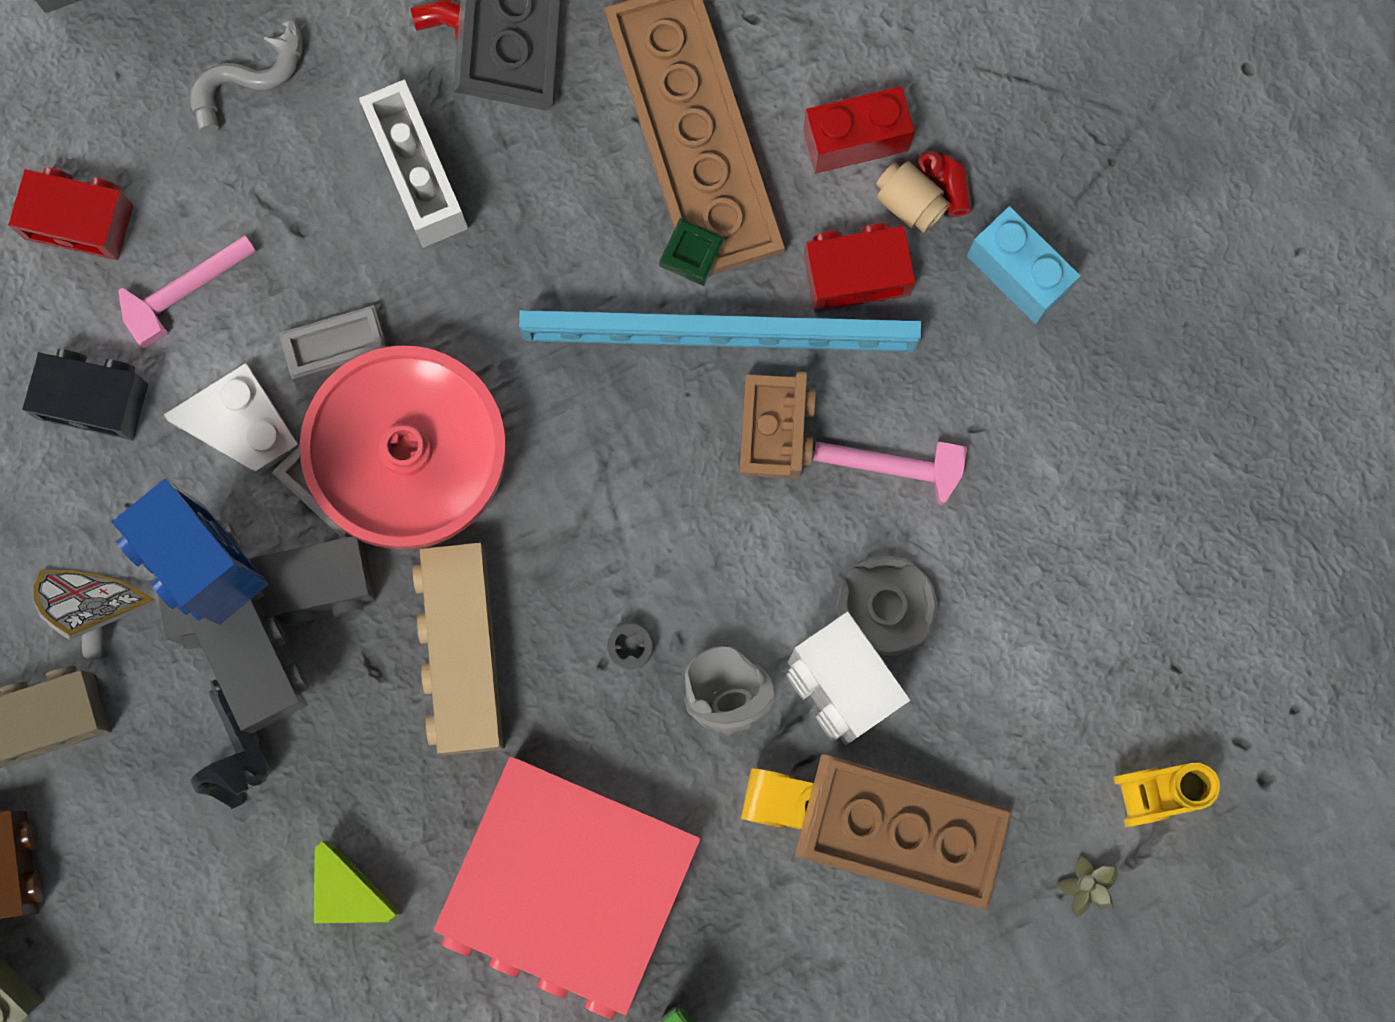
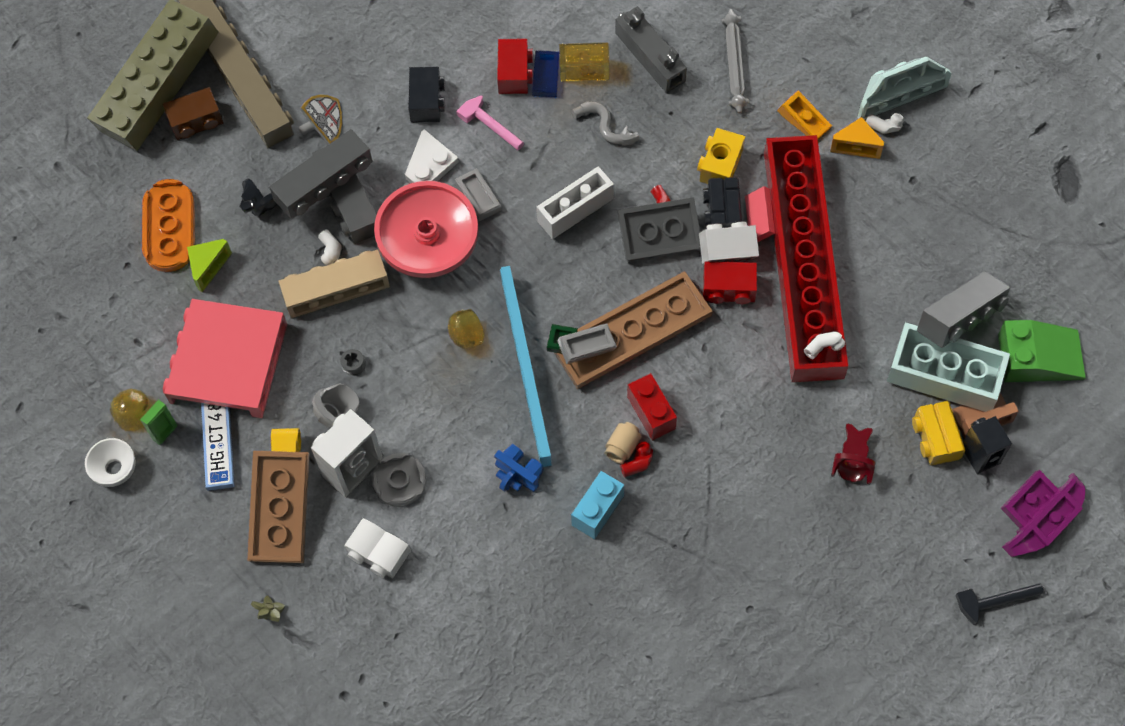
camera: 80 degrees right, 15 degrees down
(101, 156) = (546, 74): none -> clear blue tile
(103, 78) = (584, 61): none -> clear yellow brick
(188, 553) = (340, 134): blue brick -> none
(236, 958) = (168, 225): none -> orange tile
(379, 640) = (332, 249): none -> white arm
(624, 423) = (465, 329): none -> clear yellow hair
(717, 208) = (586, 343): none -> light grey tile
(746, 932) = (217, 447): none -> tile
(774, 426) = (481, 402): medium nougat bracket -> none
(858, 267) = (576, 424): red brick -> none
(938, 373) = (508, 462): none -> blue hips
(944, 470) = (477, 493): bright pink piece -> none
(1019, 668) = (377, 548): none -> white brick
(1157, 795) = (323, 634): yellow piece -> none

